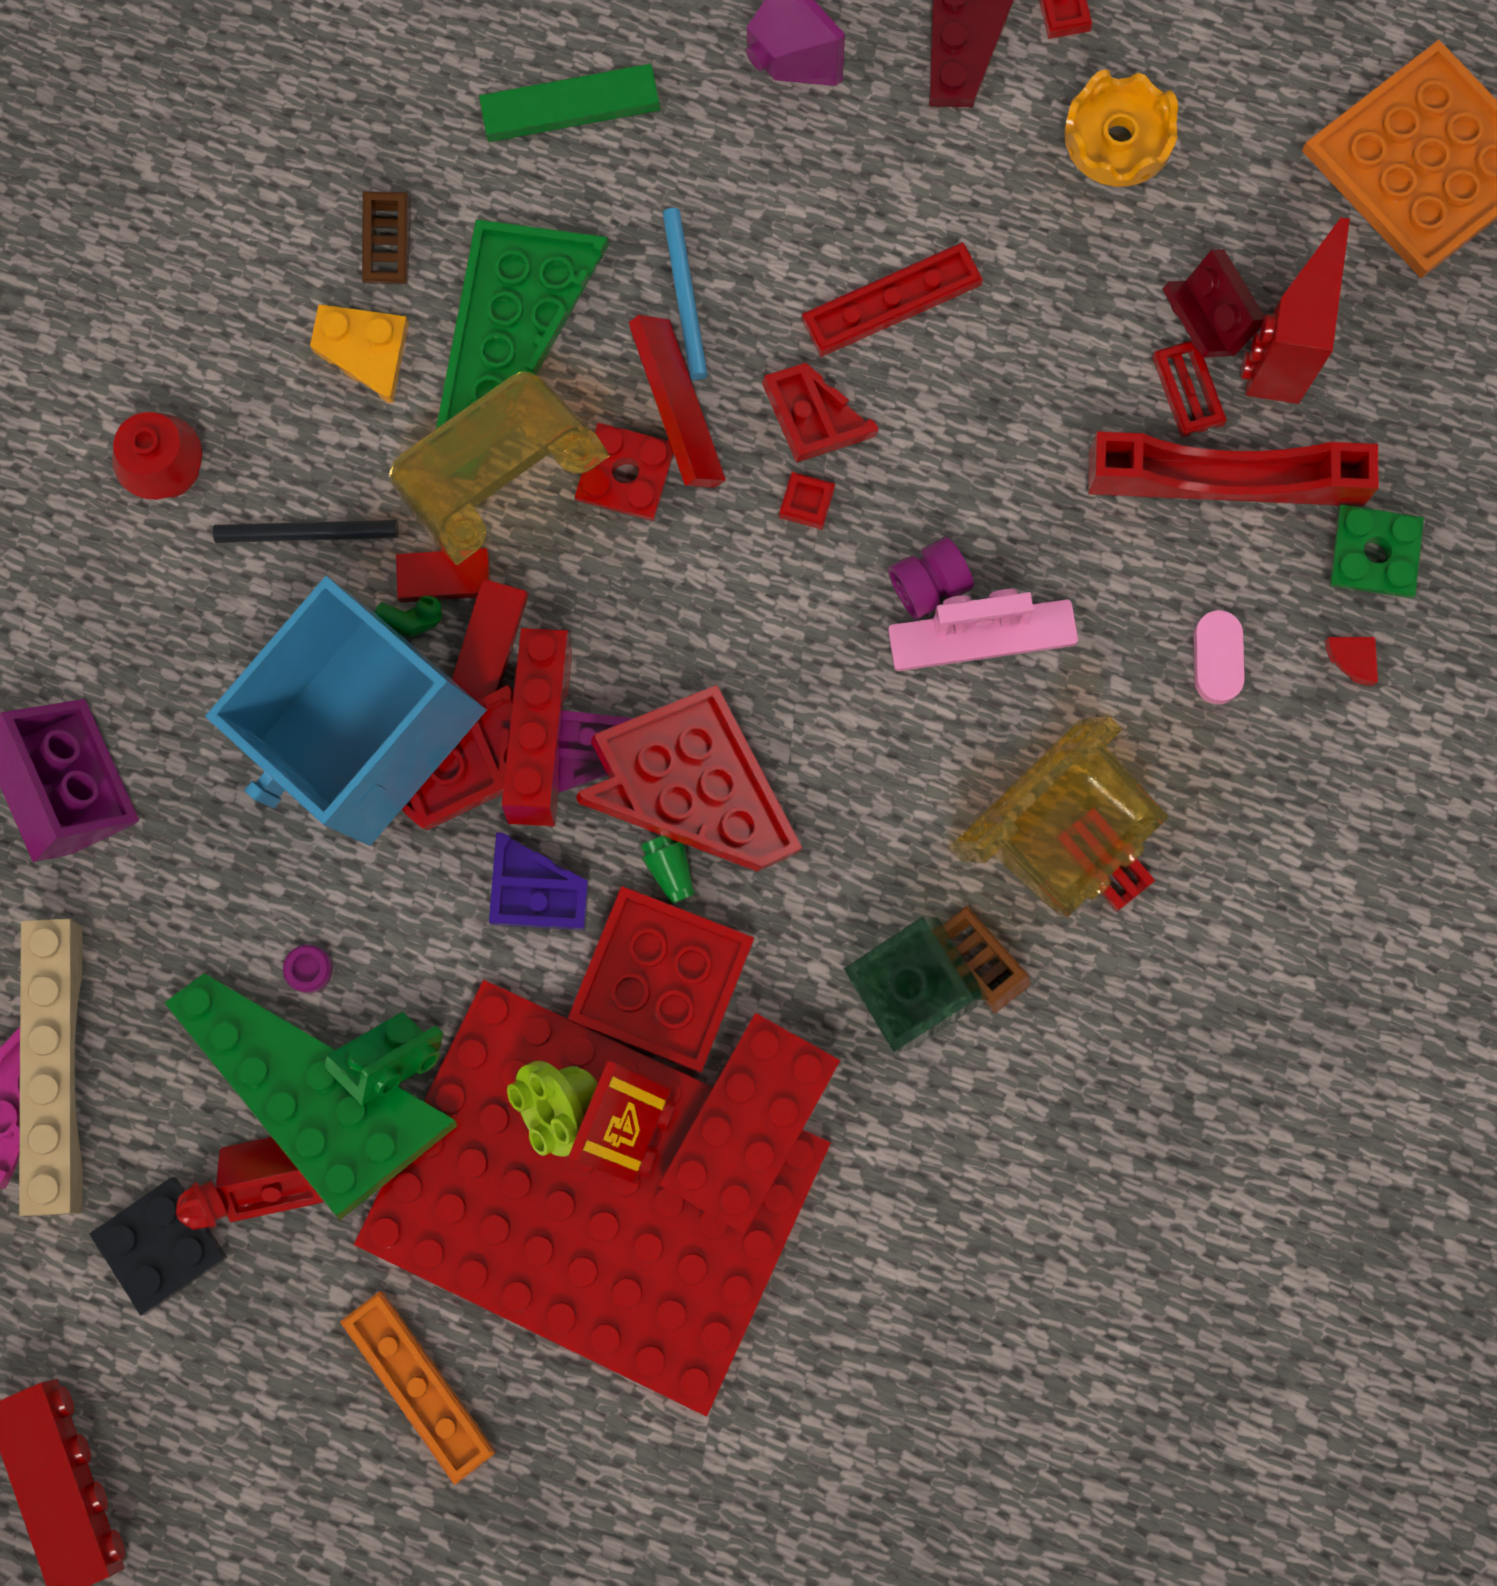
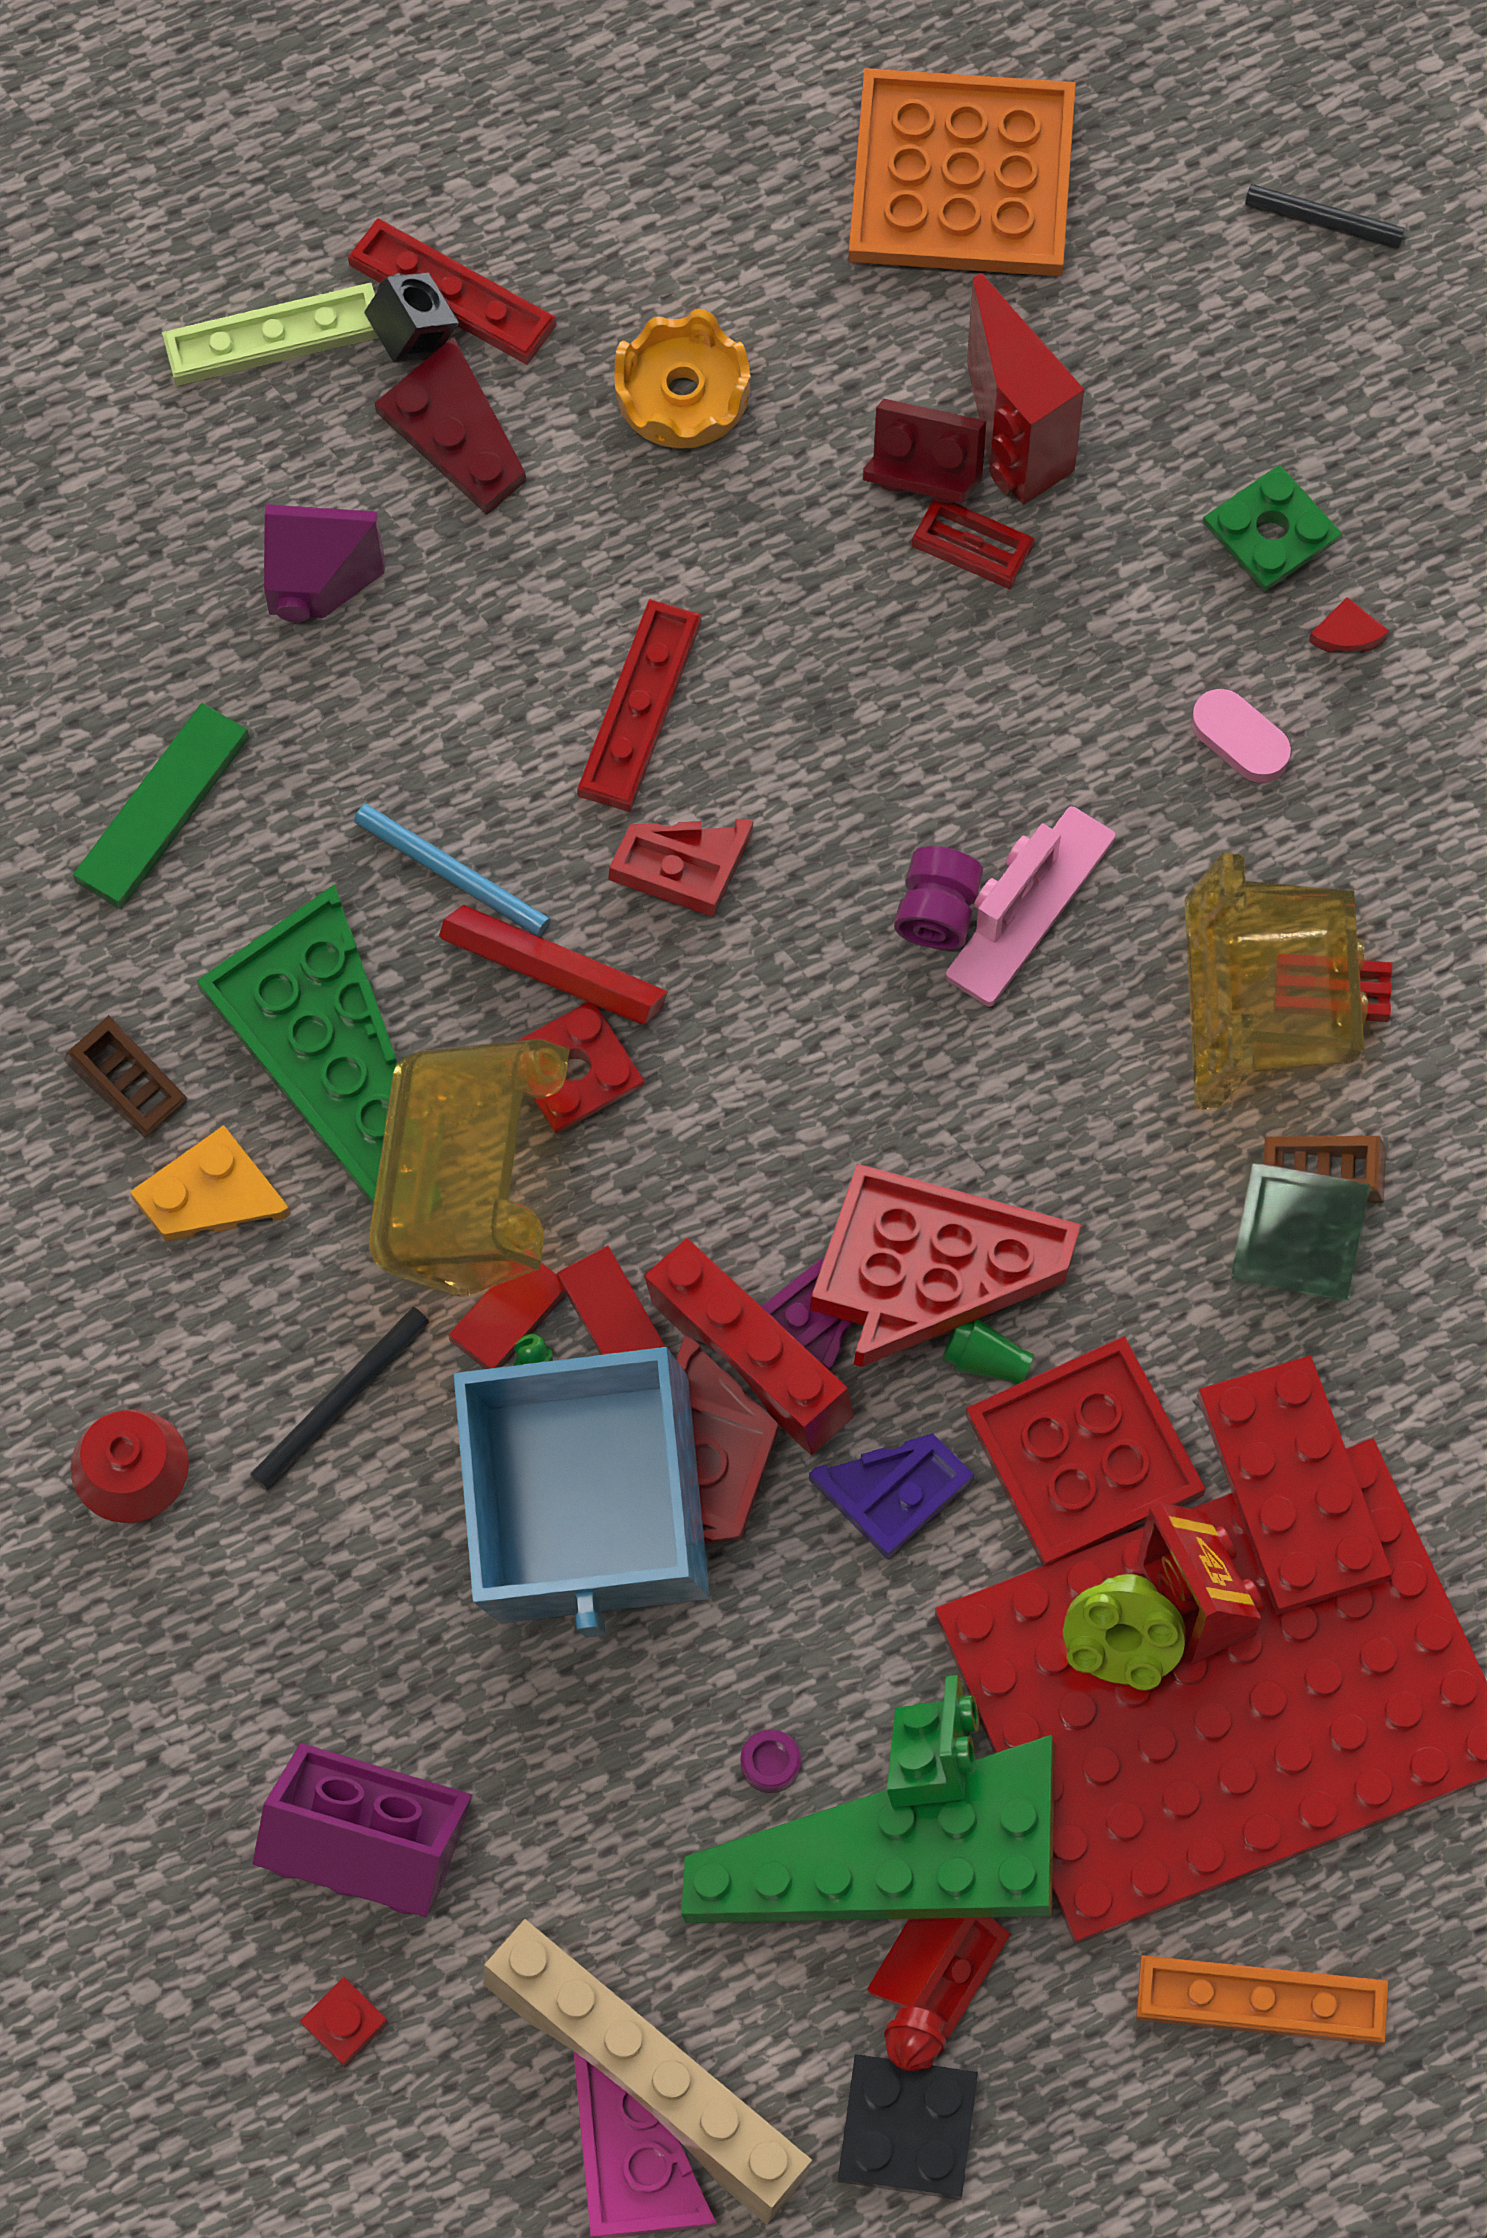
camera: 50 degrees left, 10 degrees down
(807, 500) = (756, 940): red tile -> none
(1302, 475) = (1027, 627): red arch -> none

